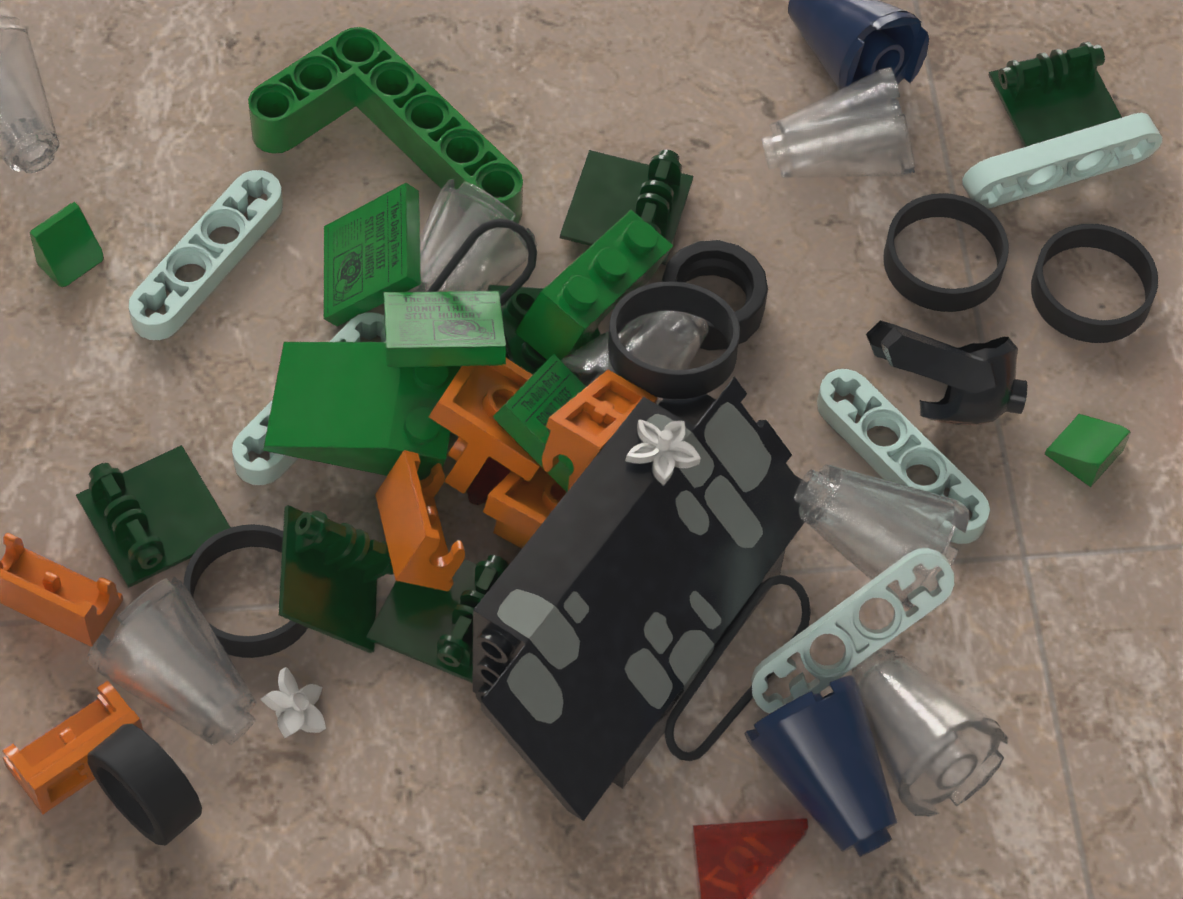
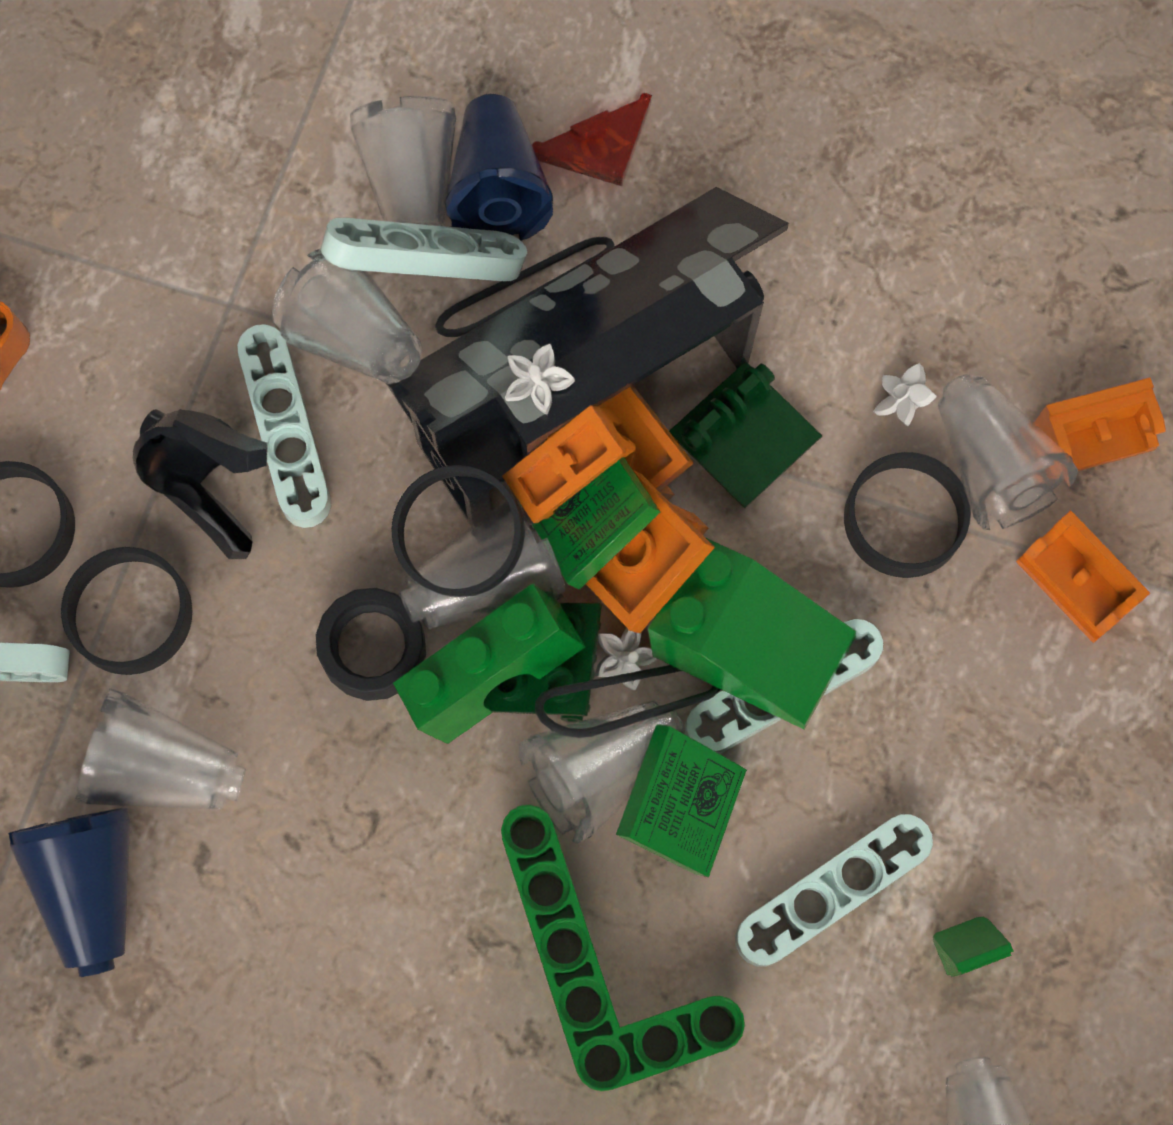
camera: 155 degrees left, 15 degrees up
(145, 784) = (1057, 351): black tyre -> none
(151, 513) = (968, 621): dark green hinge -> none
(330, 576) = (839, 482): dark green hinge -> none
(414, 526) = (751, 493): orange hinge -> none
(444, 329) = (660, 647): tile -> none
(616, 185) = (403, 785): dark green hinge -> none
(1088, 447) = (116, 367): green slope -> none

